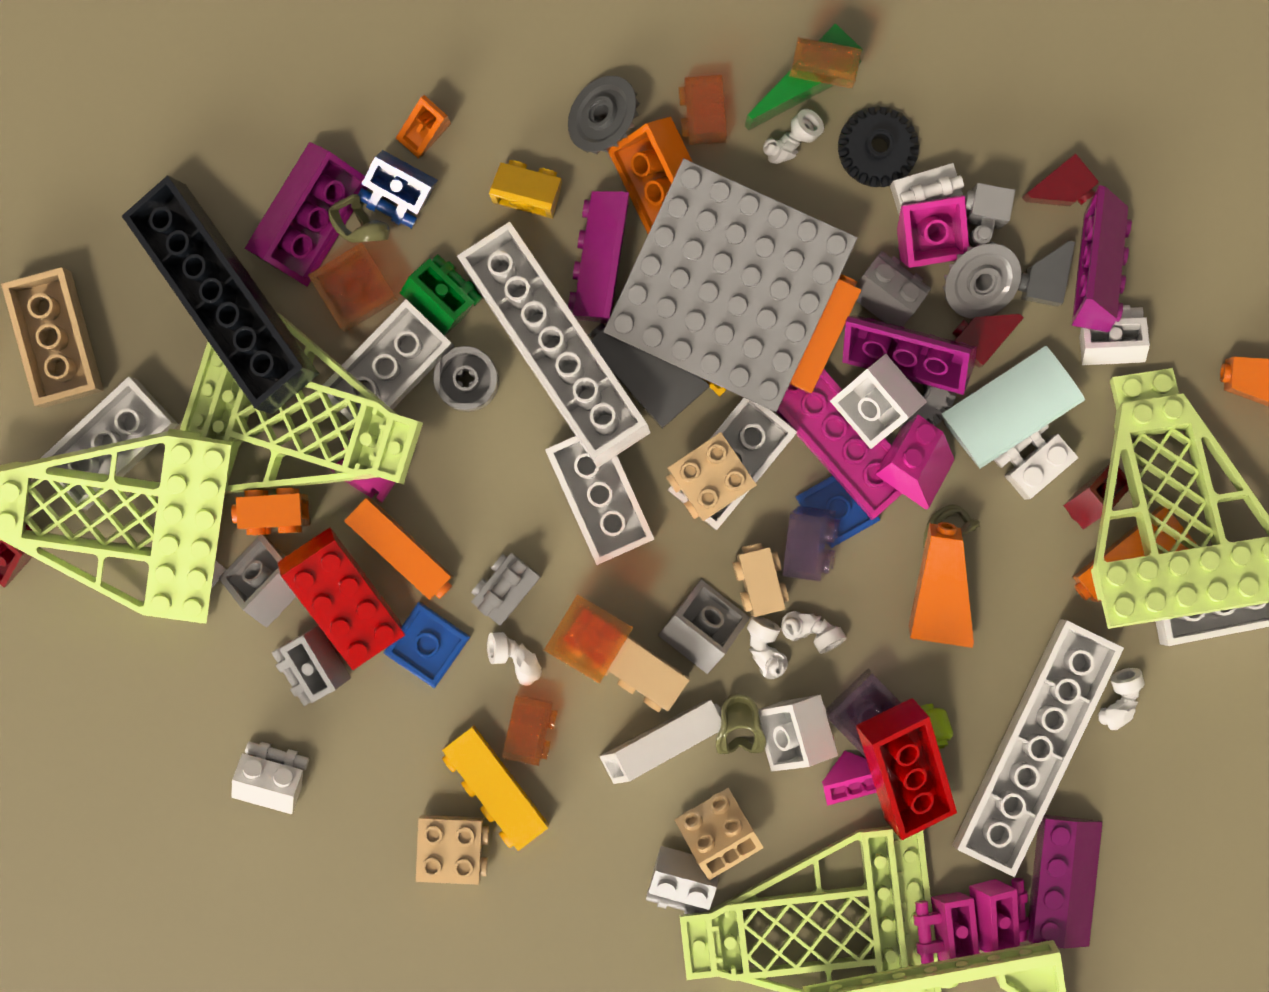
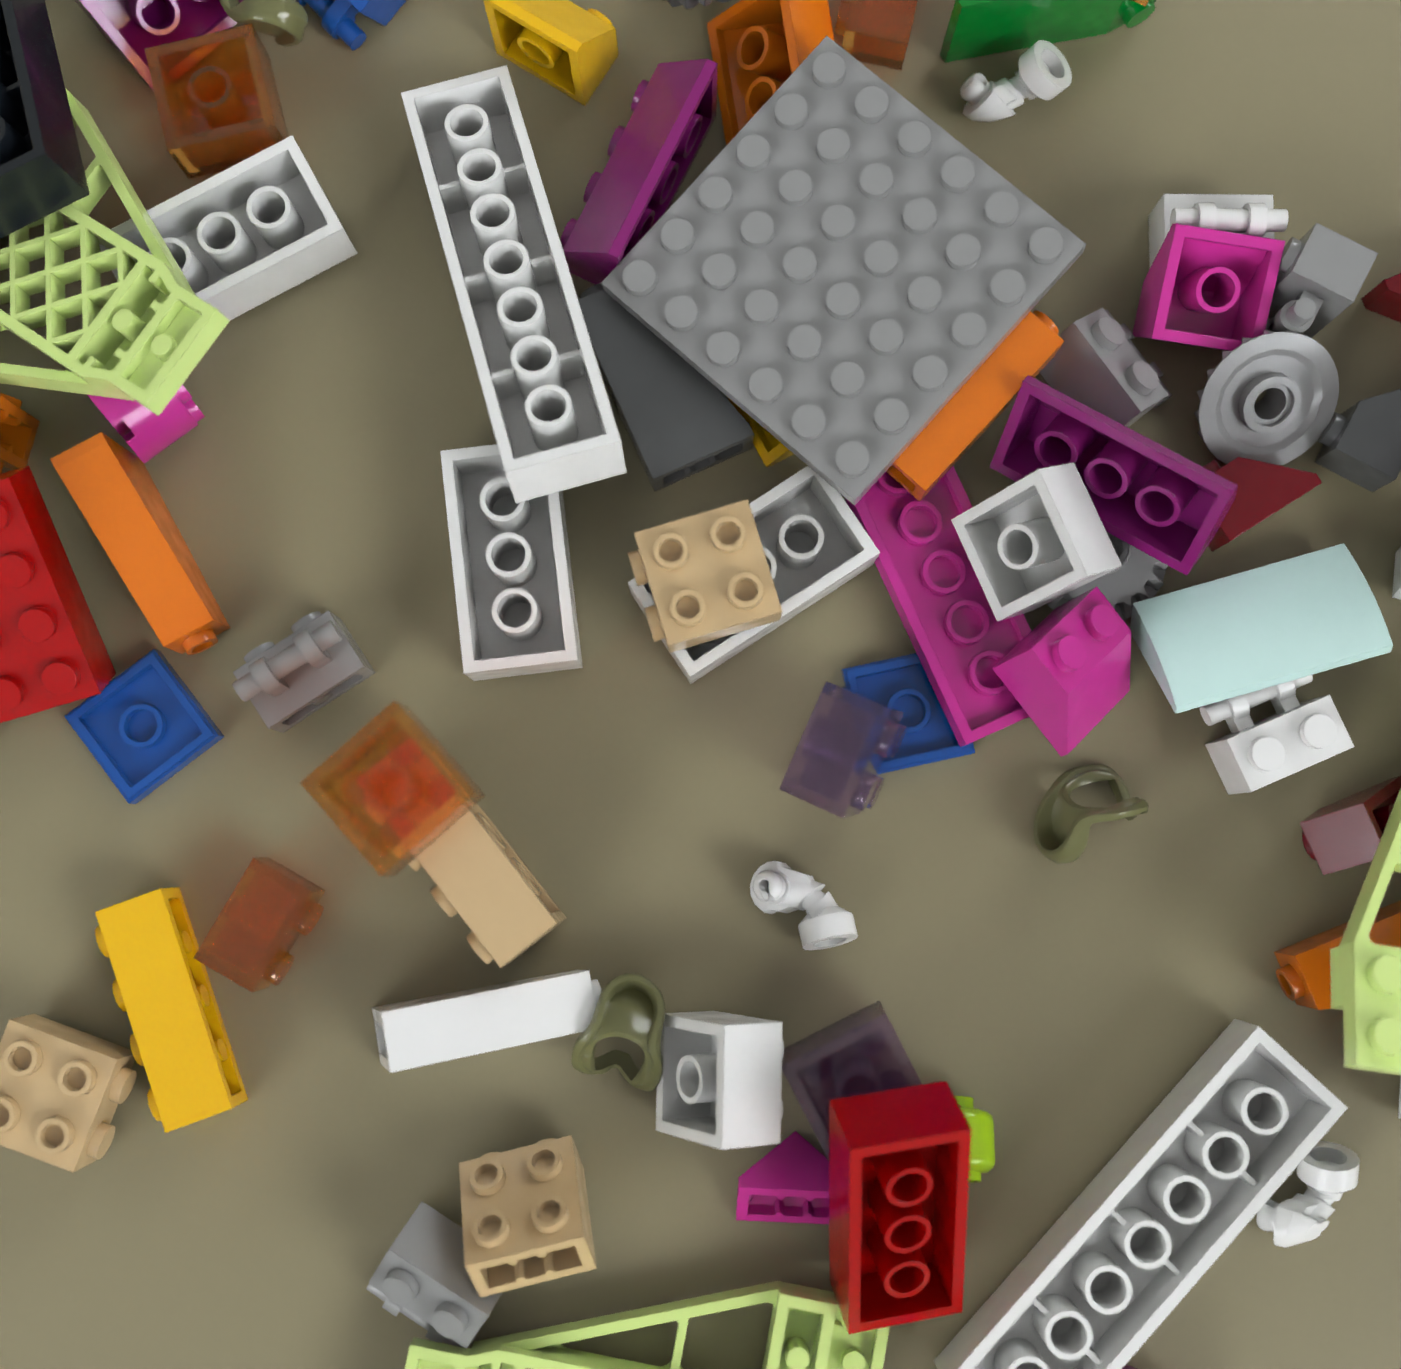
camera: 20 degrees right, 5 degrees down
(440, 293) = (357, 155): green brick -> none
(453, 366) = (358, 277): light grey brick -> none
(526, 663) = (296, 812): white arm -> none
(704, 626) = (618, 840): light grey slope -> none
(758, 571) = (740, 772): tan brick -> none
(770, 661) = (714, 936): white arm -> none
(875, 167) = (1129, 166): black gear -> none
(942, 595) = (1051, 906): orange slope -> none

